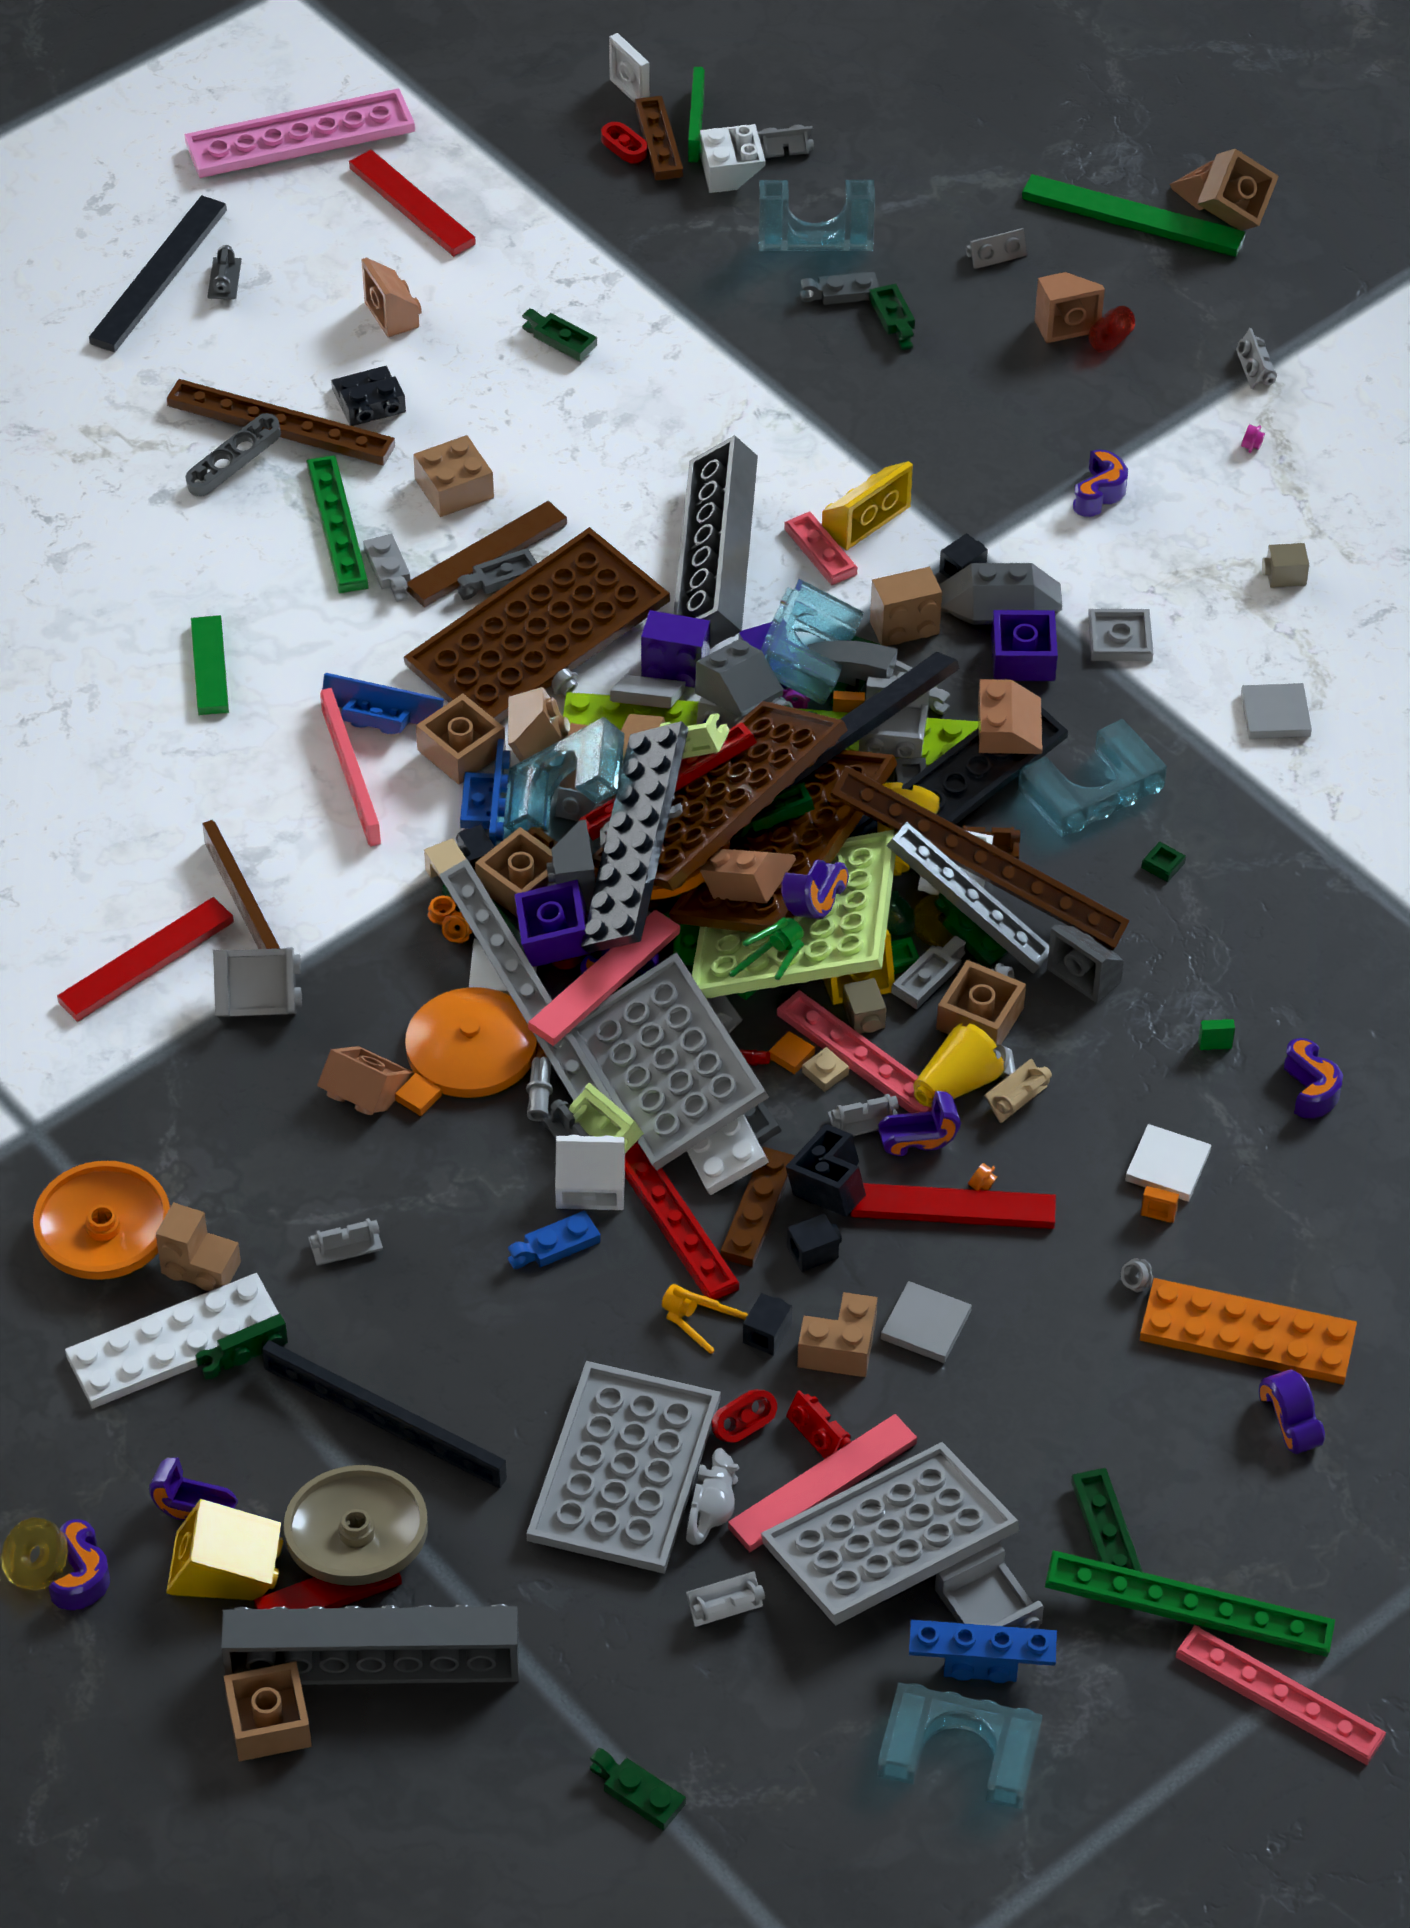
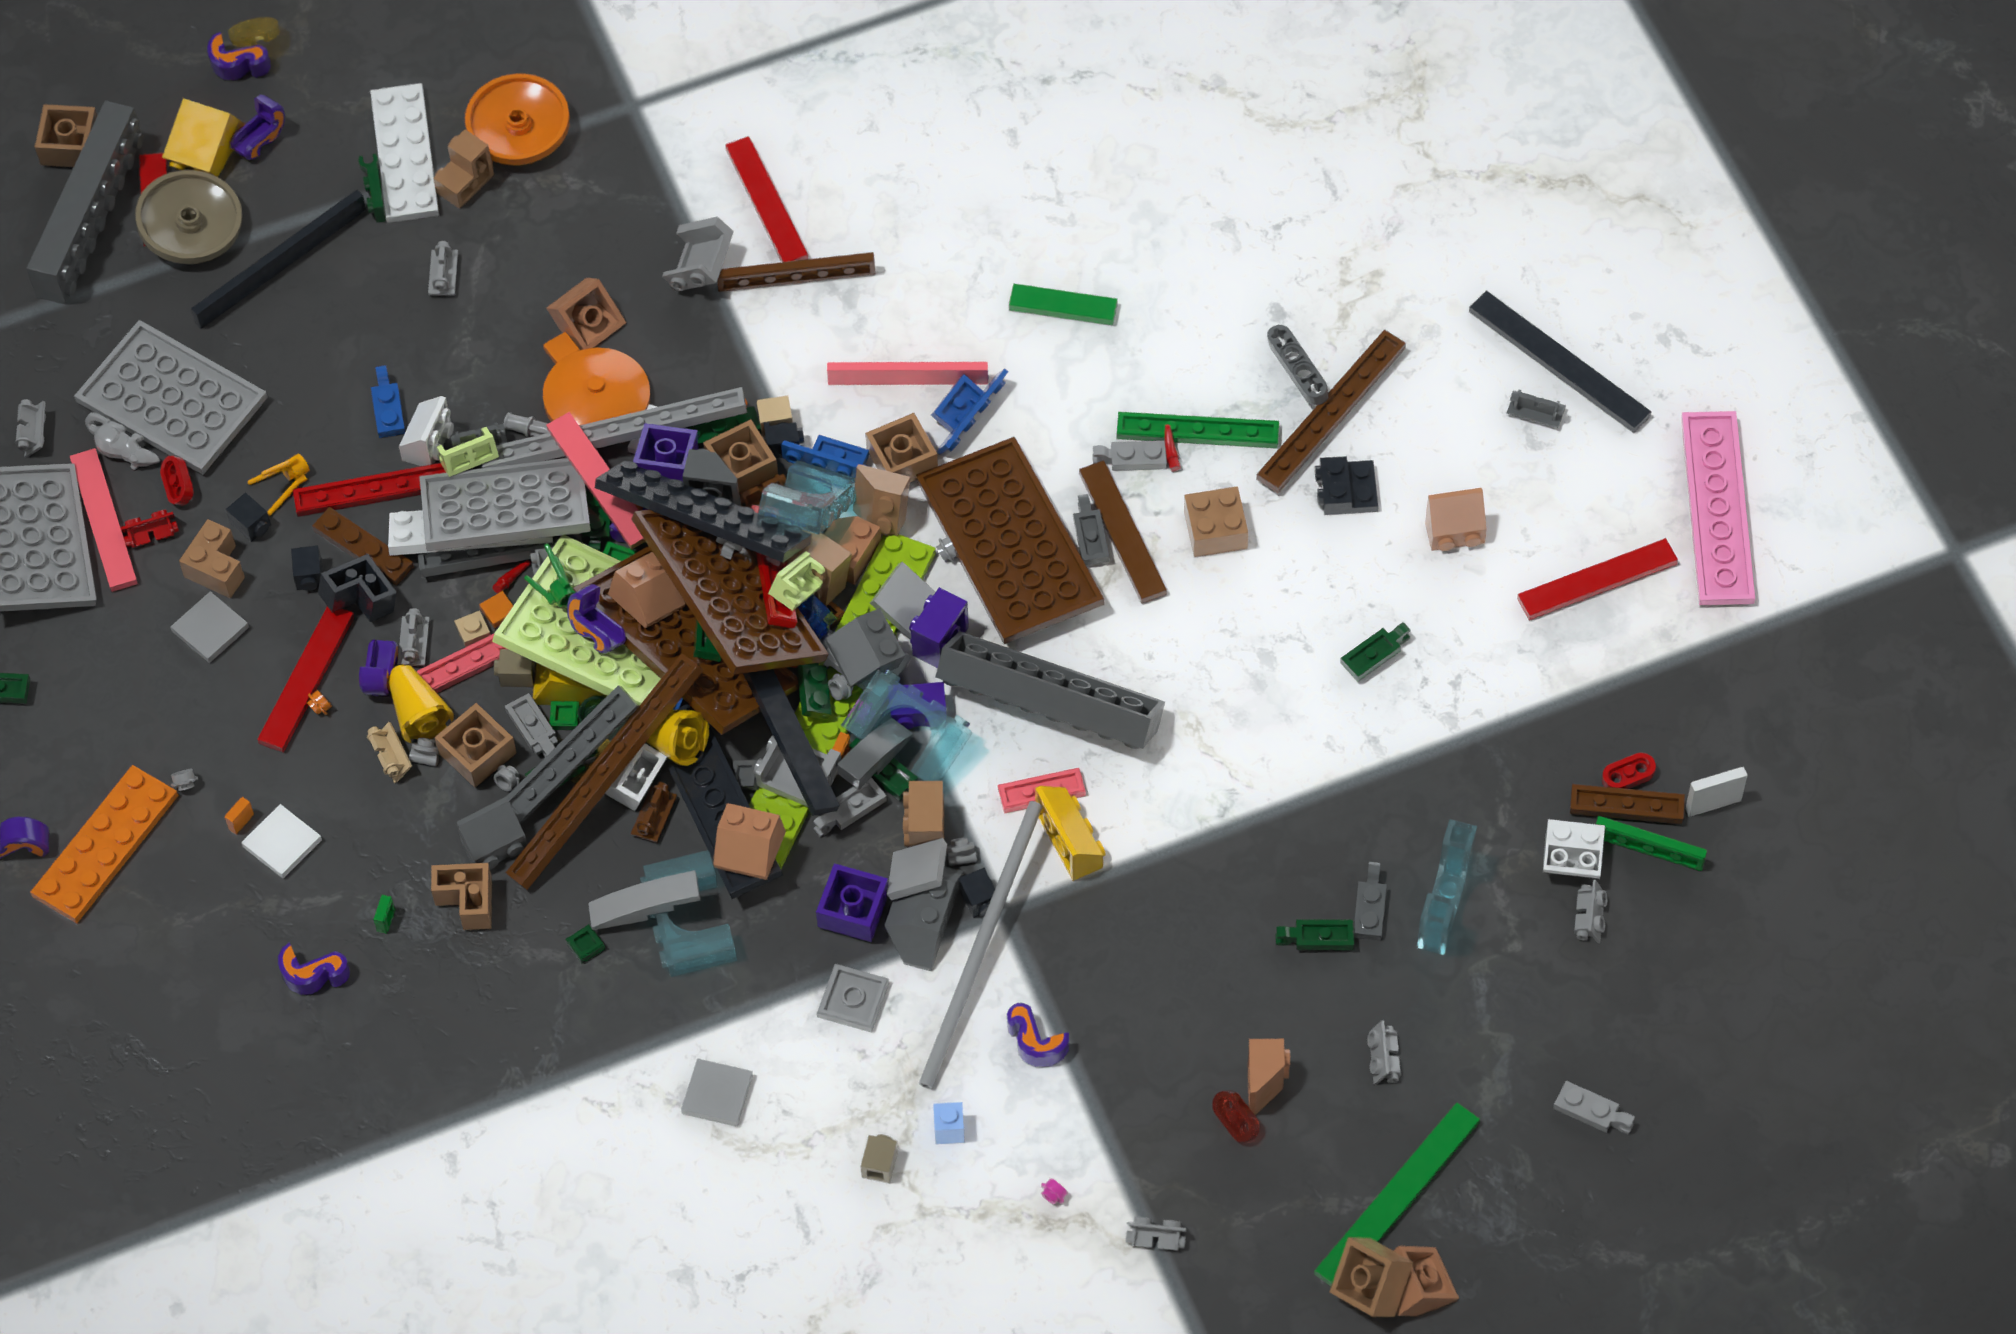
camera: 110 degrees right, 10 degrees up
(380, 531) = (1171, 454): none -> red helmet
(969, 595) = (917, 869): none -> light grey tile
(983, 110) = (1592, 1109): none -> light grey plate
(1025, 533) = (980, 945): none -> light grey piece
(1107, 801) = (644, 899): none -> light grey slope
(1159, 959) = (469, 888): none -> medium nougat brick
(1224, 521) = (948, 1123): none -> light blue brick

